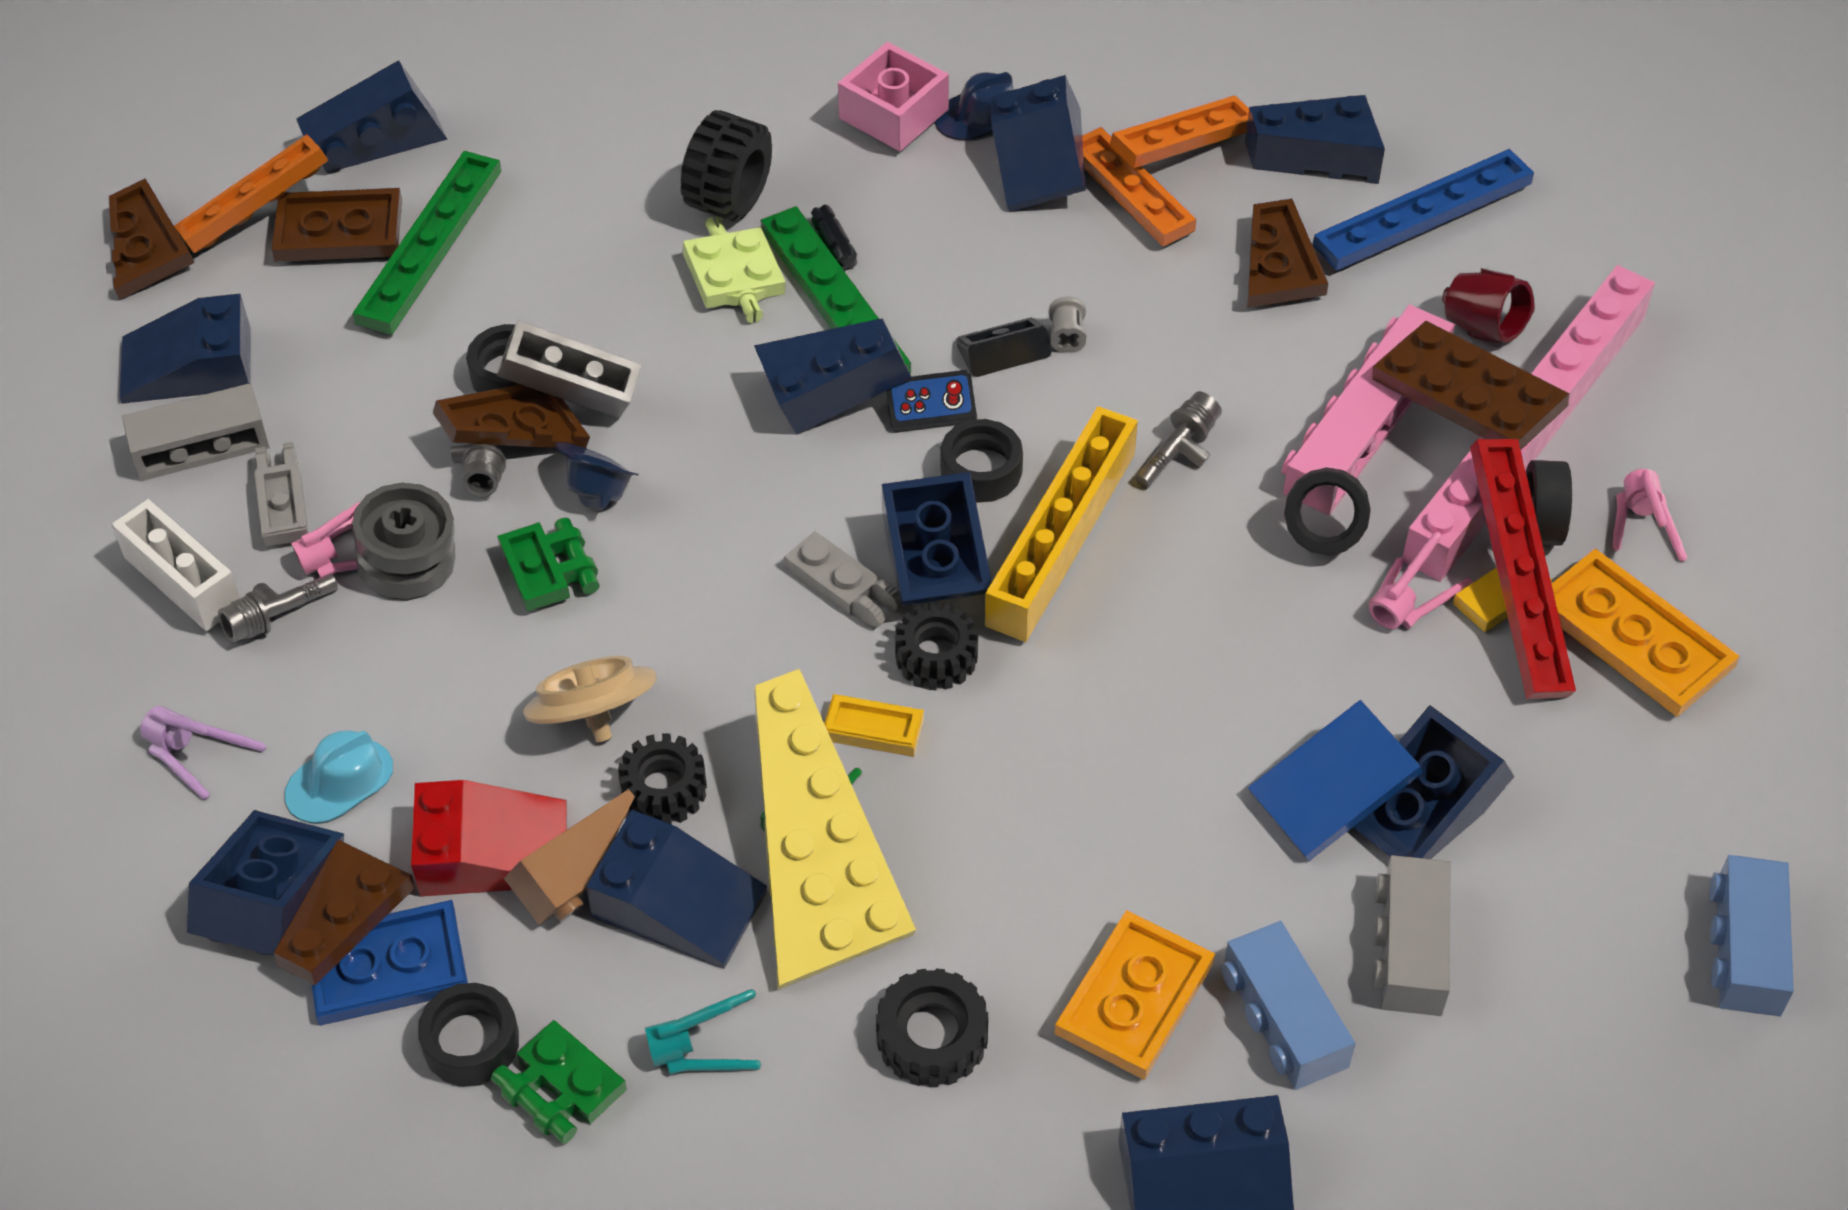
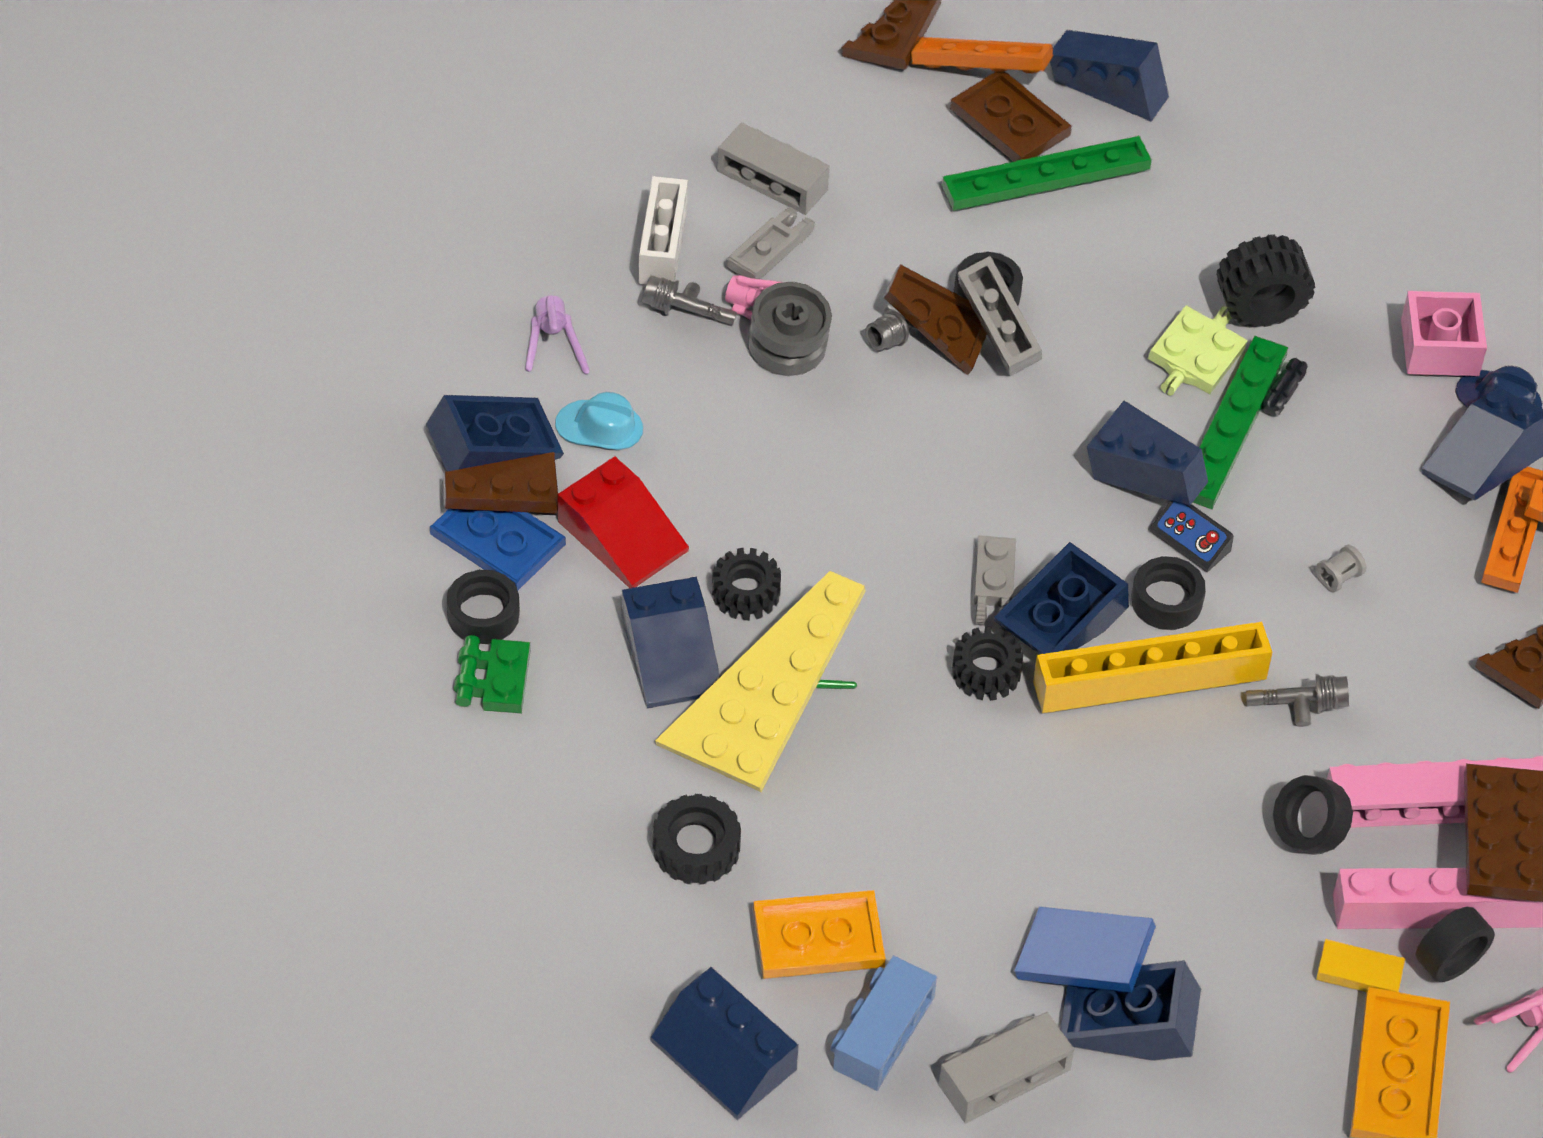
camera: 50 degrees right, 0 degrees up
(188, 351) = (833, 121): dark blue slope -> none
(535, 568) = (843, 408): green plate -> none
(559, 871) = (626, 567): medium nougat slope -> none
(589, 693) = (765, 499): tan piece -> none
(594, 476) = (943, 388): dark blue piece -> none
(672, 1040) = (569, 711): teal plant -> none
(874, 725) = (896, 670): yellow tile -> none
(1004, 346) = (1287, 545): black slope -> none
(1395, 601) = (1282, 905): bright pink plant -> none
(1522, 569) = (1372, 957): red plate -> none

